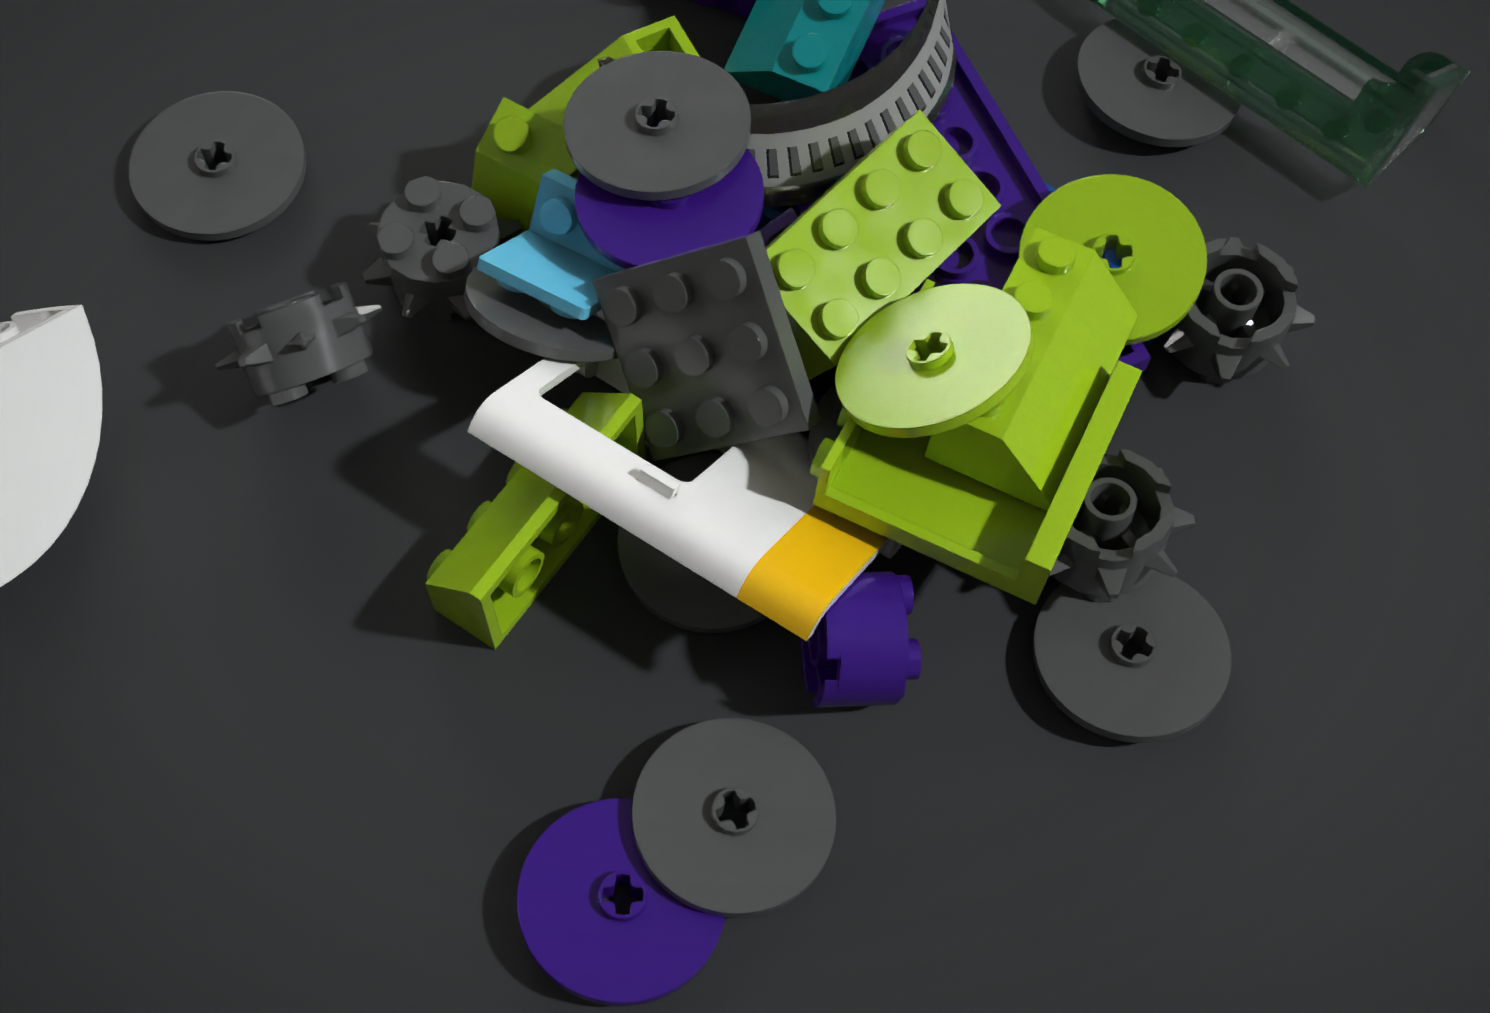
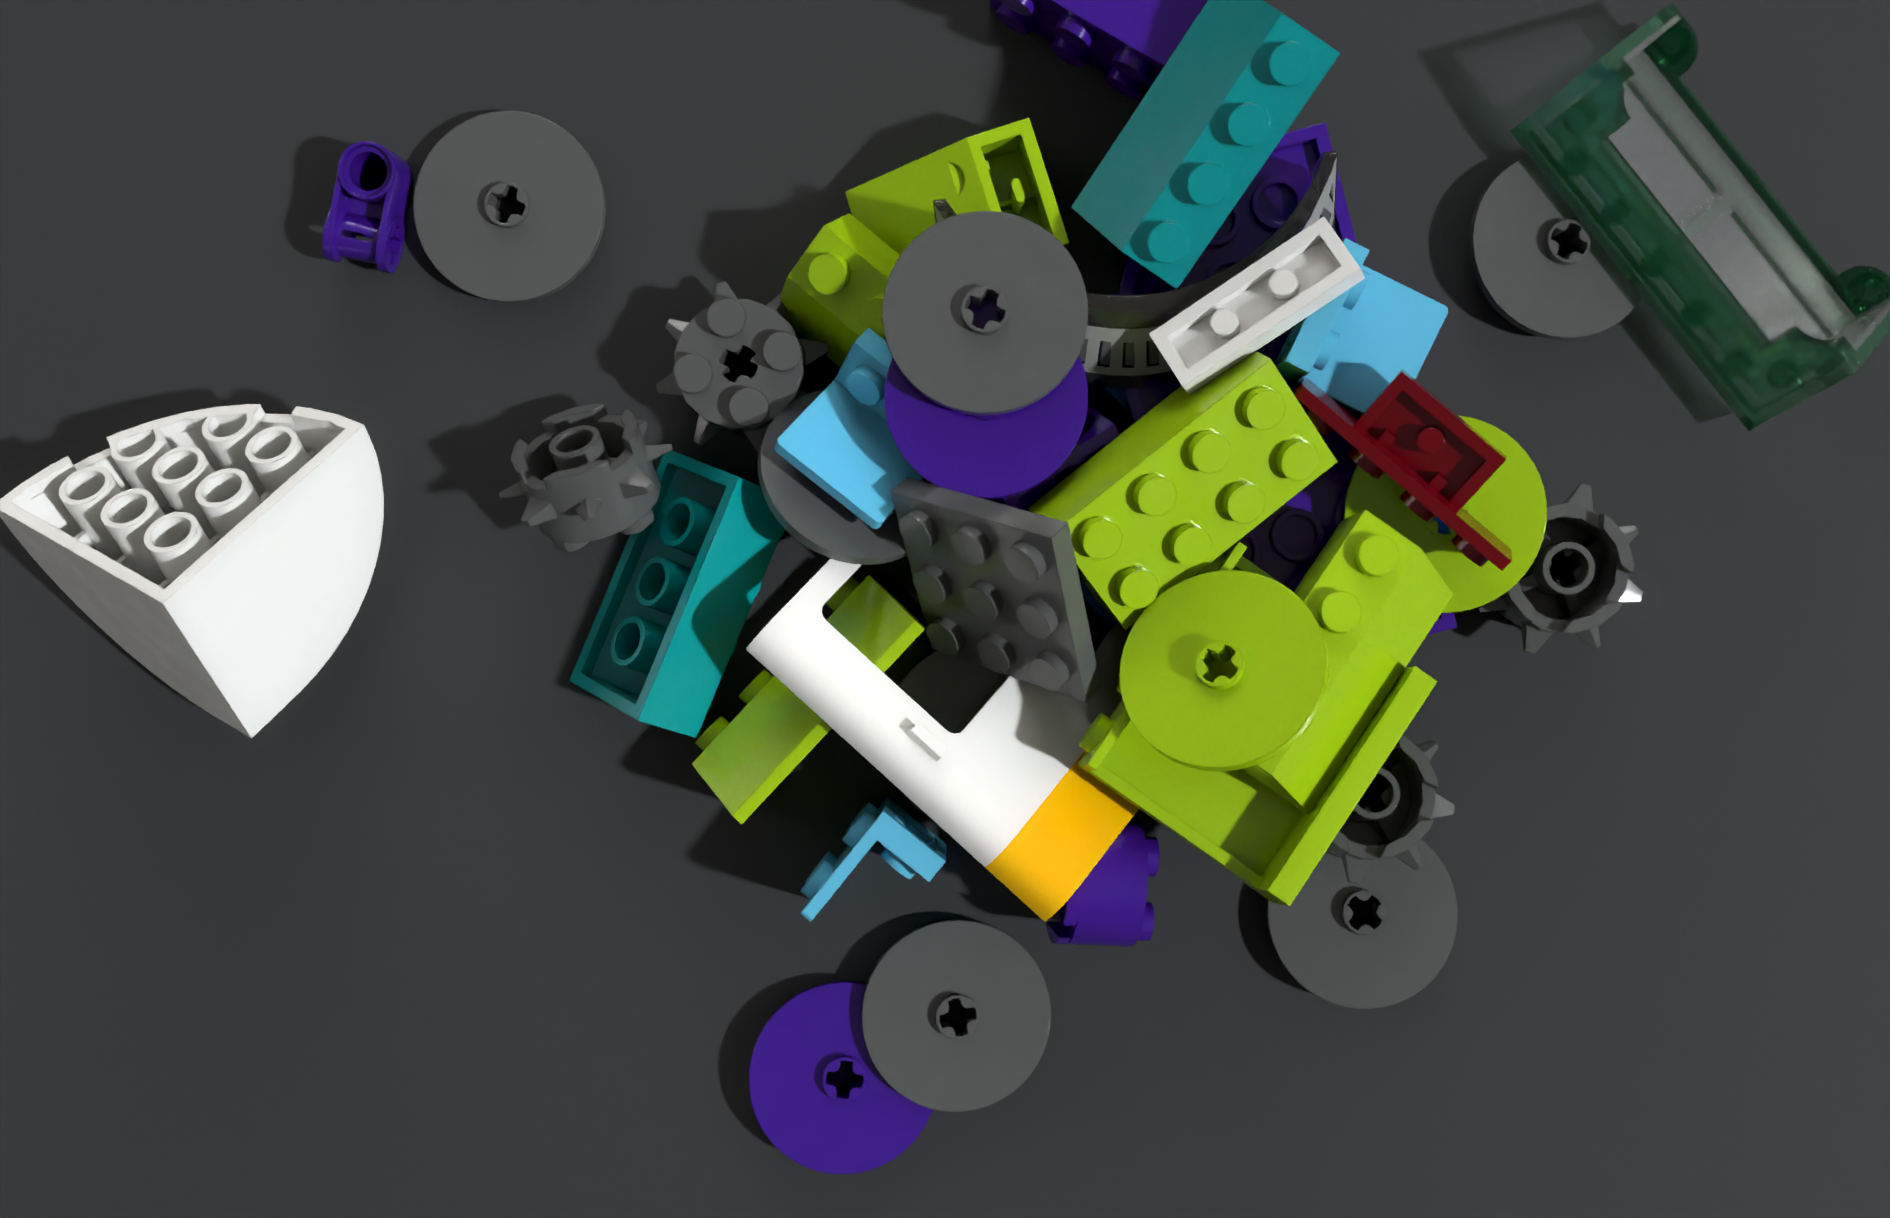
camera: 10 degrees right, 25 degrees up
(85, 171) = (367, 213): none -> dark purple piece
(402, 448) = (680, 597): none -> teal slope
(628, 613) = (906, 844): none -> medium azure bracket
(898, 85) = (1257, 305): none -> white plate
(1000, 128) = (1362, 338): none -> medium azure bracket
(1084, 194) = (1422, 450): none -> dark red bracket

